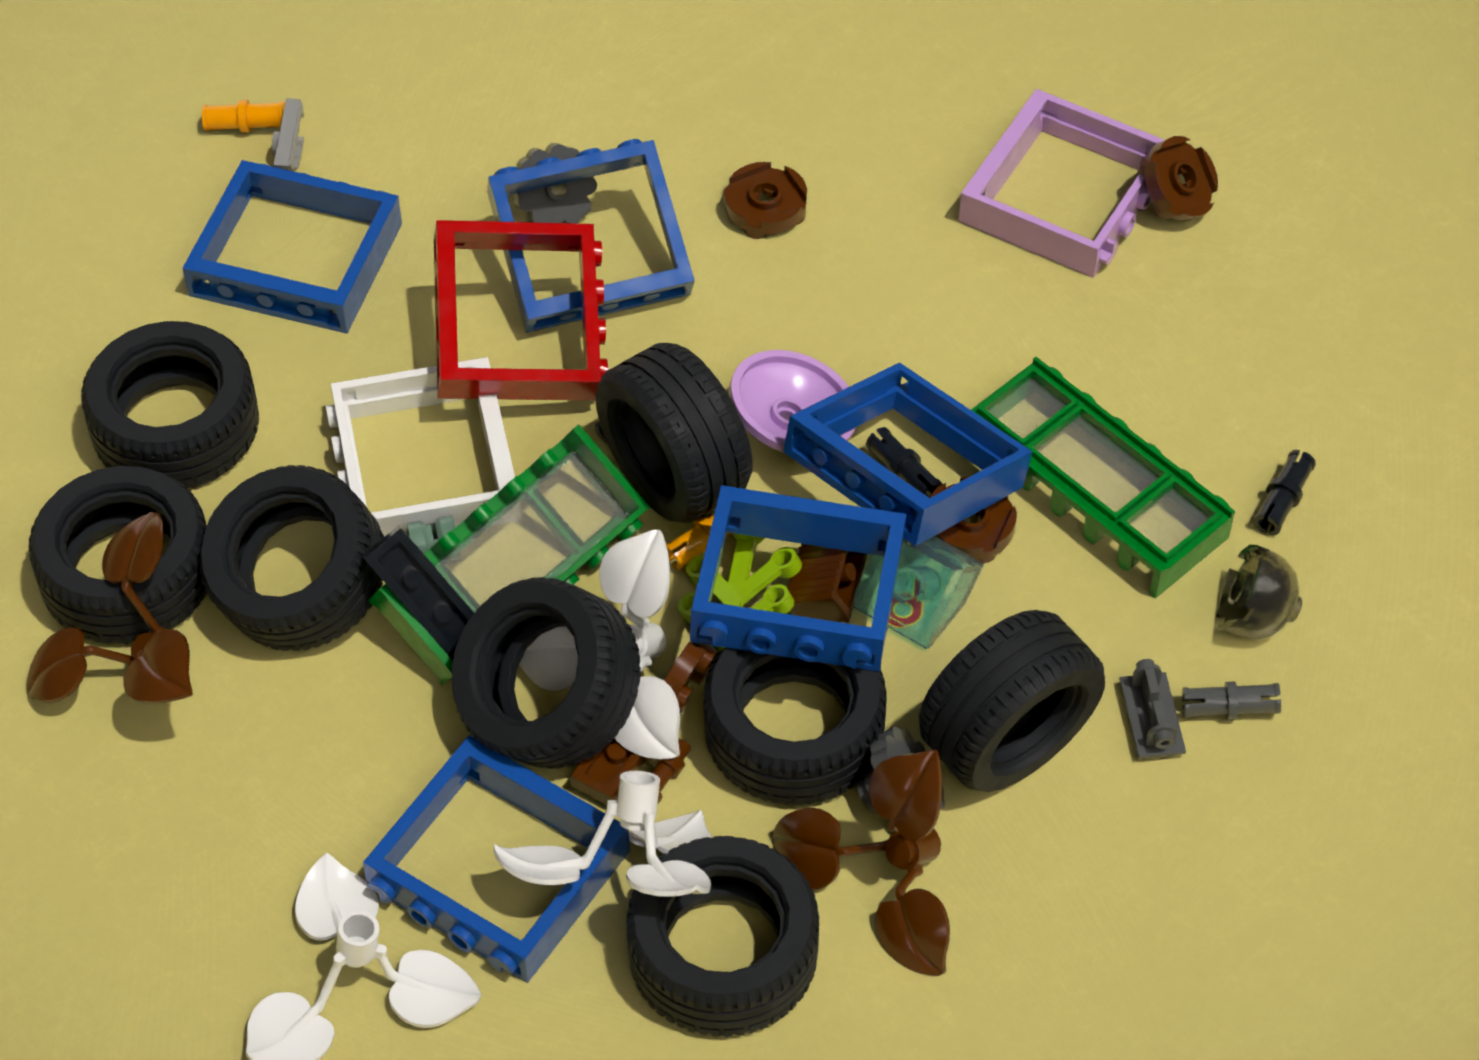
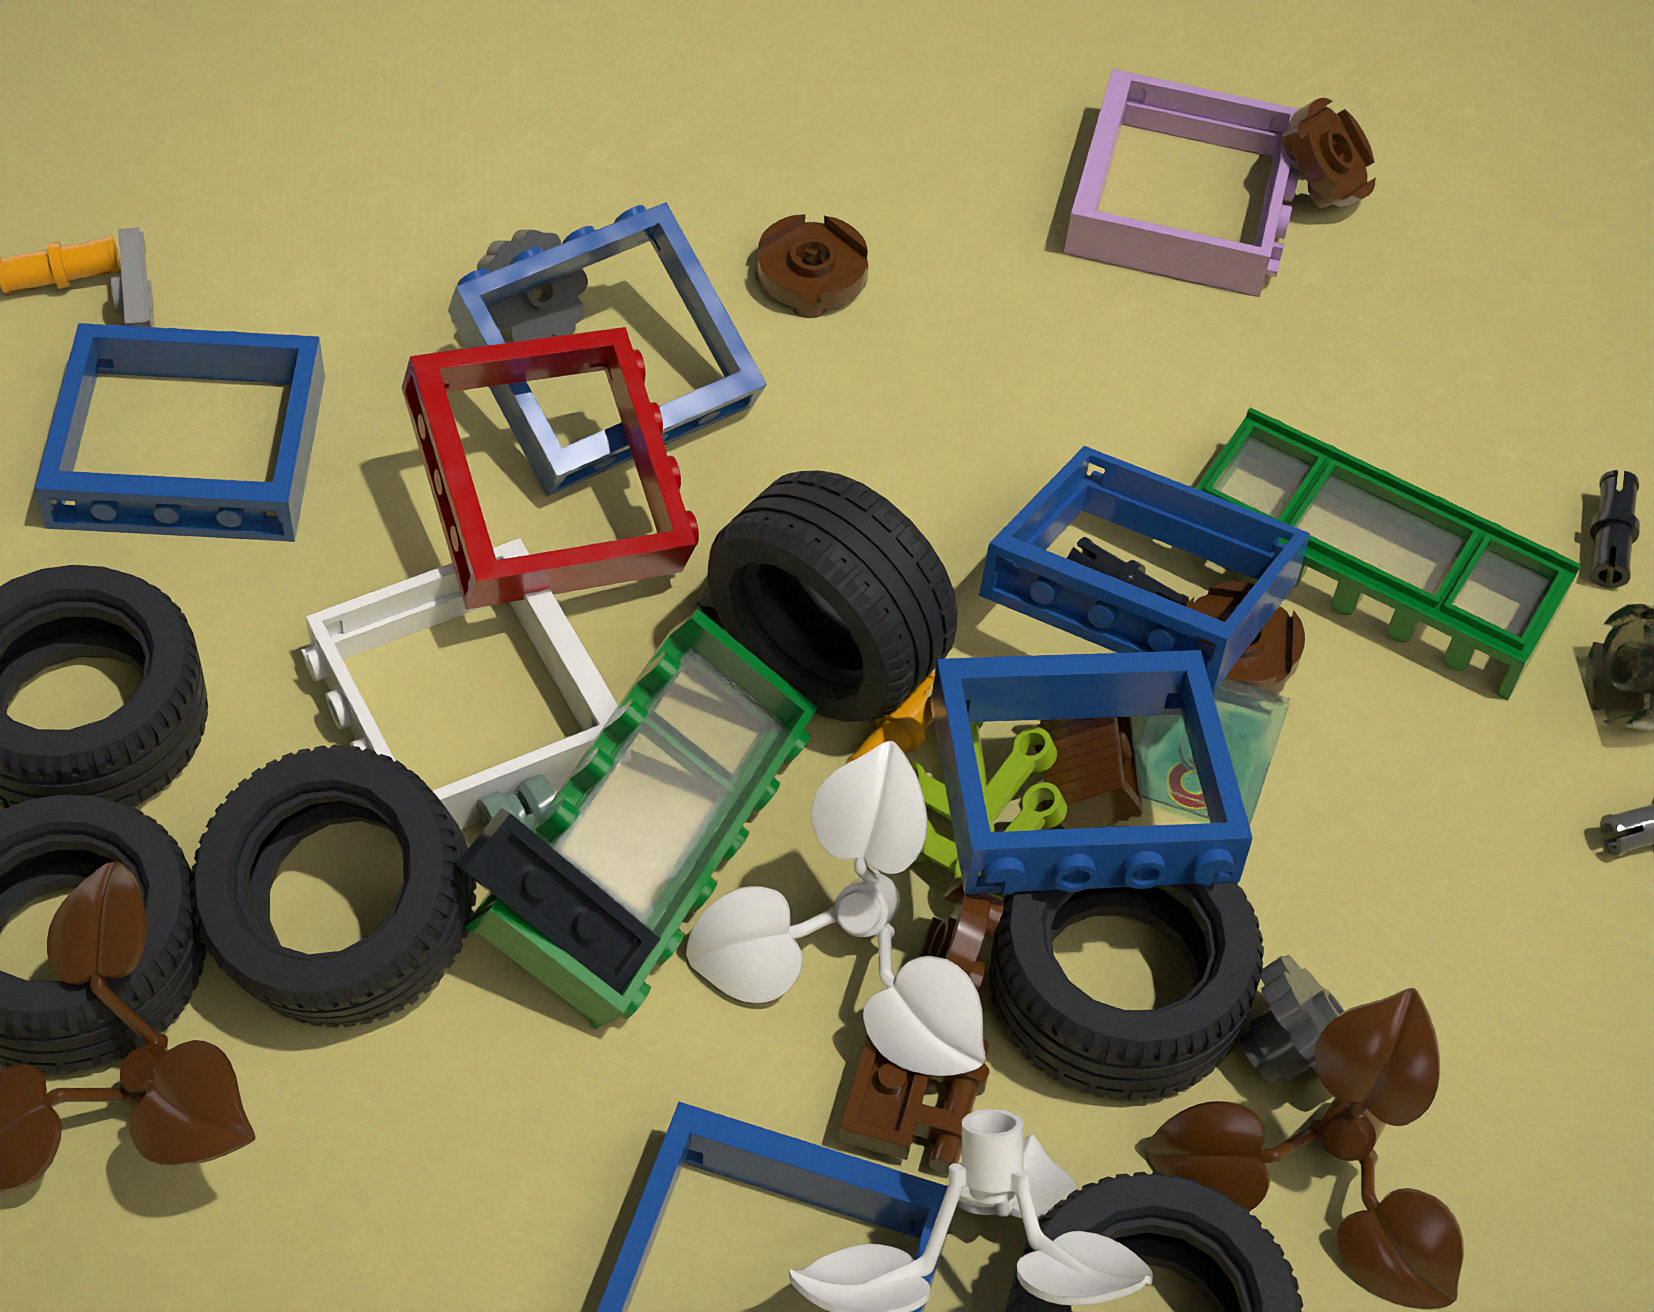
camera: 20 degrees left, 0 degrees up
(494, 646) = (676, 968): black tyre -> none
(777, 385) = (955, 510): lavender dish -> none
(1011, 700) = (1434, 880): black tyre -> none
(1152, 711) = (1576, 858): dark grey hinge -> none

